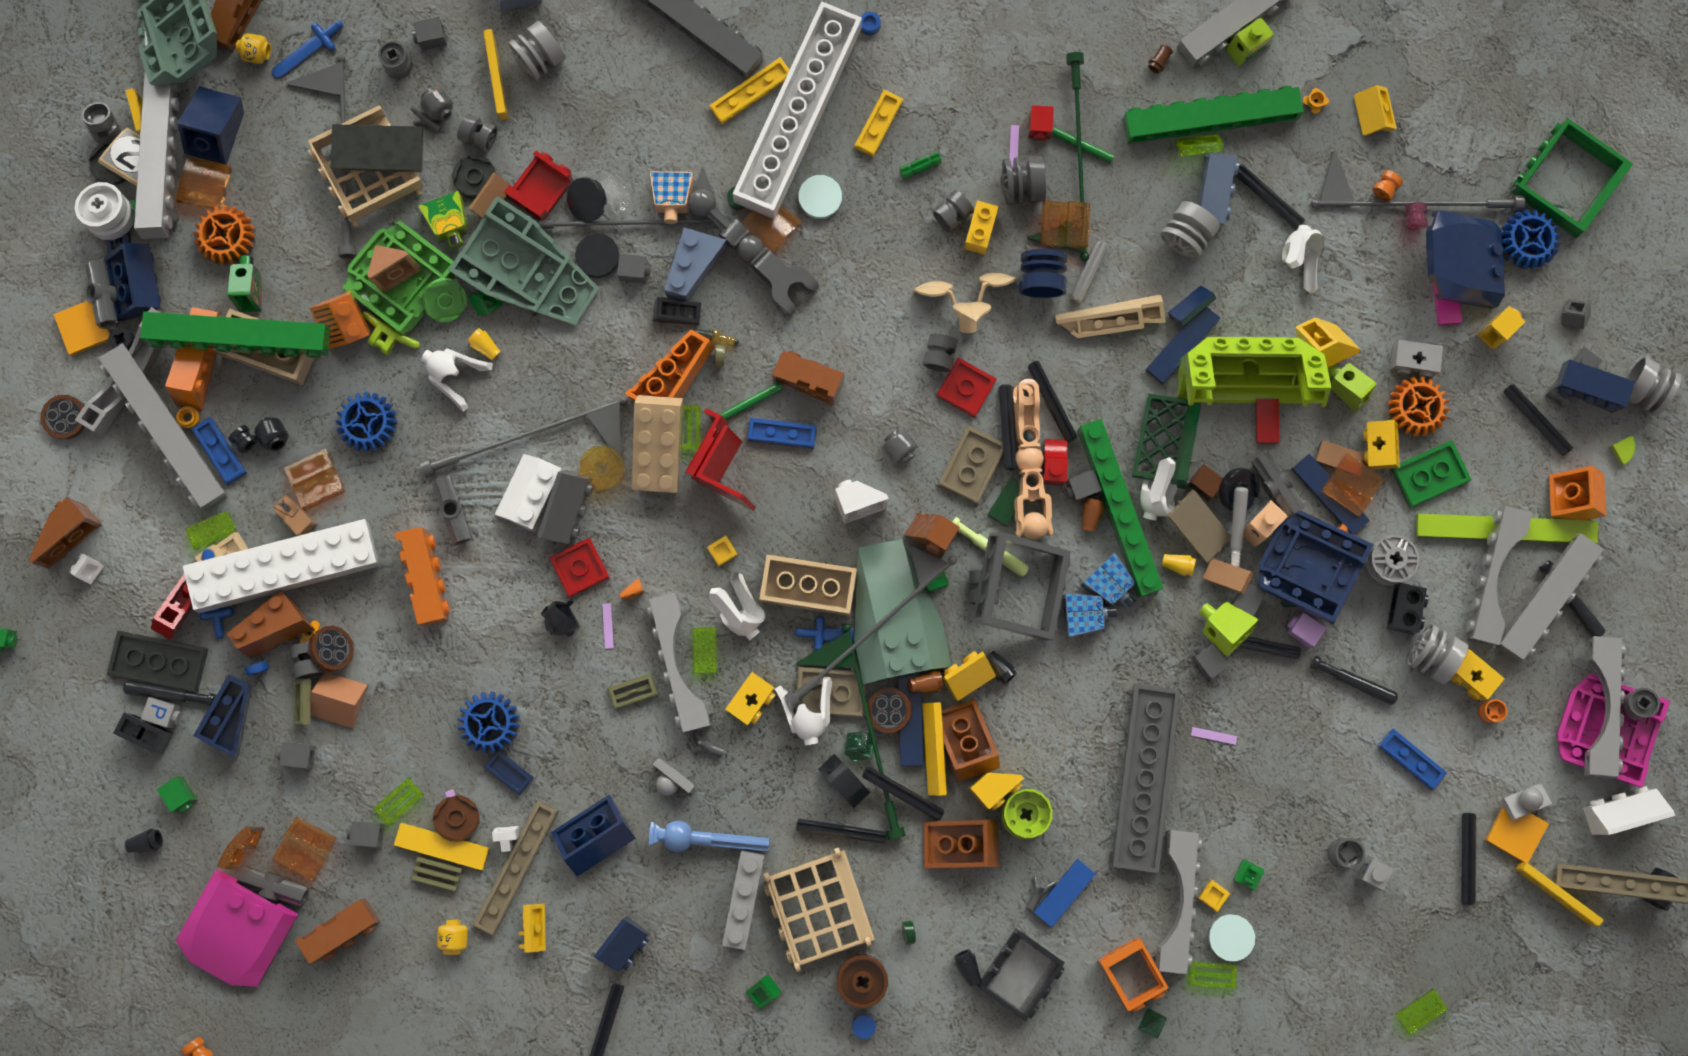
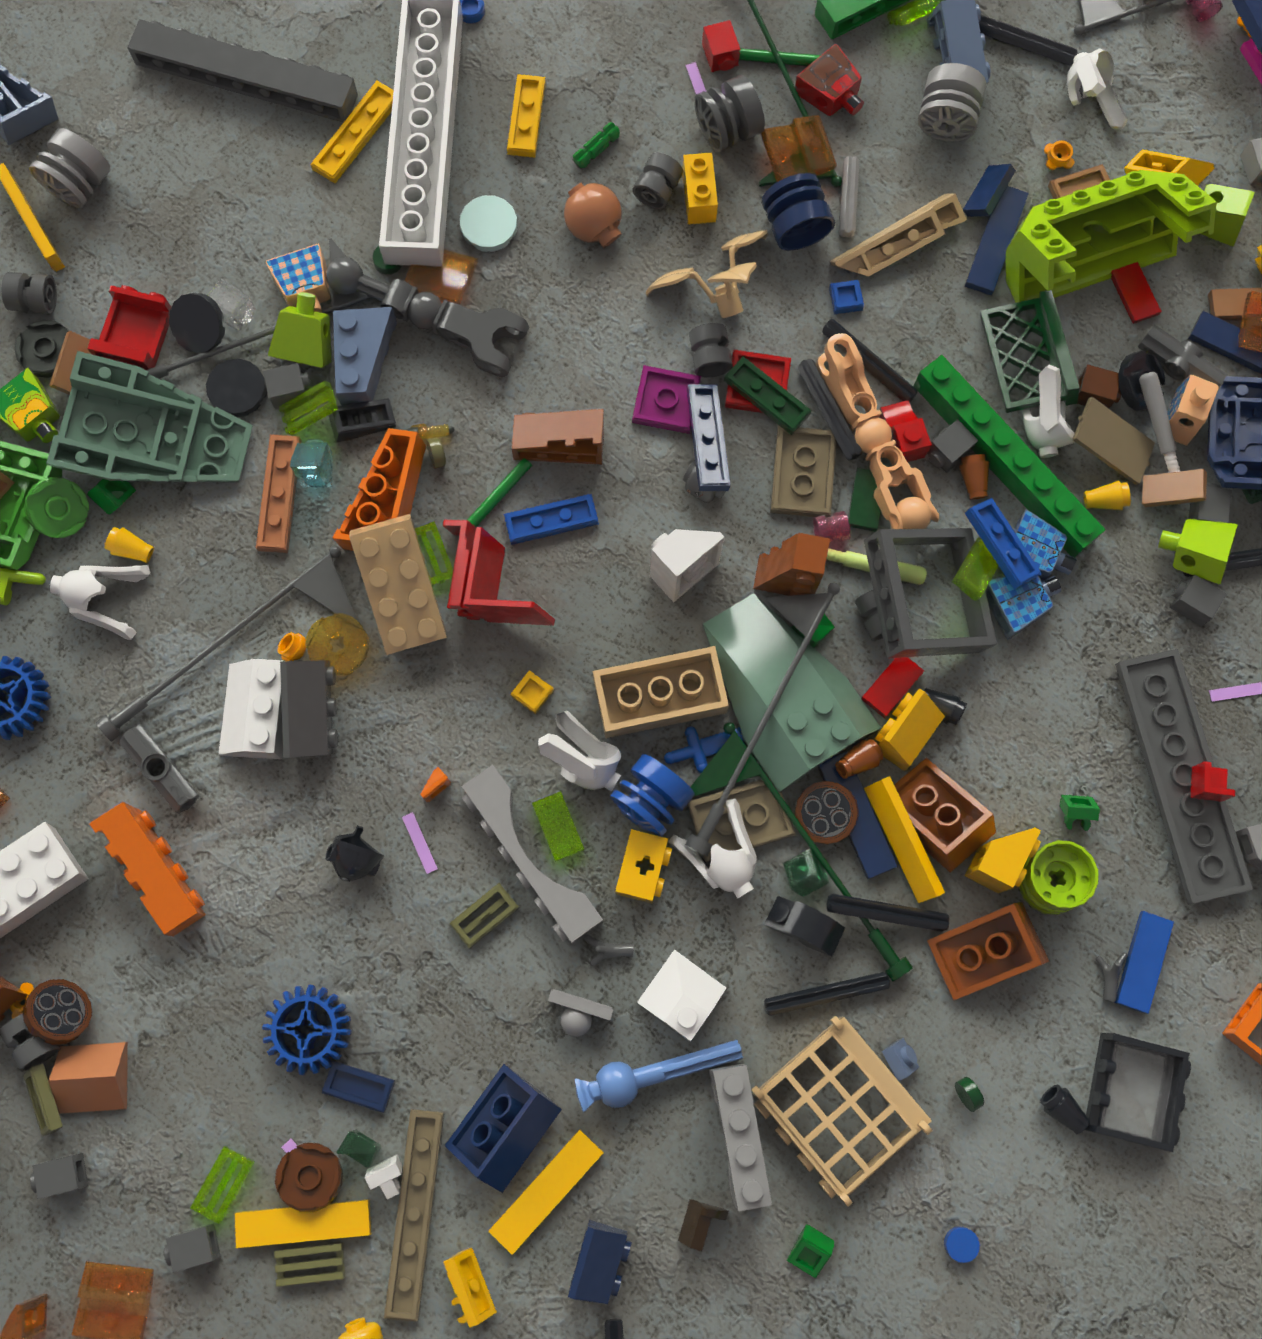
camera: 20 degrees left, 5 degrees down
(495, 812) = (359, 1147): none -> clear green slope
(570, 458) = (292, 646): none -> light orange plate
(579, 567) = (354, 781): red tile -> none
(600, 344) = (277, 495): none -> nougat tile
(606, 887) = (545, 1192): none -> yellow tile
(631, 332) = (313, 463): none -> clear light blue slope
(642, 282) = (307, 403): none -> clear neon green tile
(657, 236) = (302, 334): none -> lime torso
(696, 945) = (697, 1223): none -> dark brown tile
(744, 795) = (682, 995): none -> white slope
(774, 654) = (655, 791): none -> blue wheel
(862, 994) = (957, 1183): reddish brown wheel -> none
(872, 892) = (901, 1059): none -> sand blue plate
(896, 219) = (593, 213): none -> nougat brick
(896, 375) = (664, 399): none -> magenta tile
(912, 417) = (708, 437): none -> tile
(967, 401) = (767, 395): none -> dark green tile
(971, 640) = (892, 685): none -> red tile
(974, 514) = (833, 527): none -> clear pink wheel
(1055, 347) = (846, 297): none -> blue tile
(1062, 582) = (976, 571): none -> clear neon green tile
(1064, 774) = (1079, 808): none -> green tile
(1086, 571) = (1003, 543): none -> blue tile
(1110, 180) = (831, 83): none -> torso
(1159, 790) = (1210, 783): none -> red panel
(1261, 325) = (1077, 181): none -> medium nougat tile
(1262, 294) = (1060, 148): none -> light orange plate

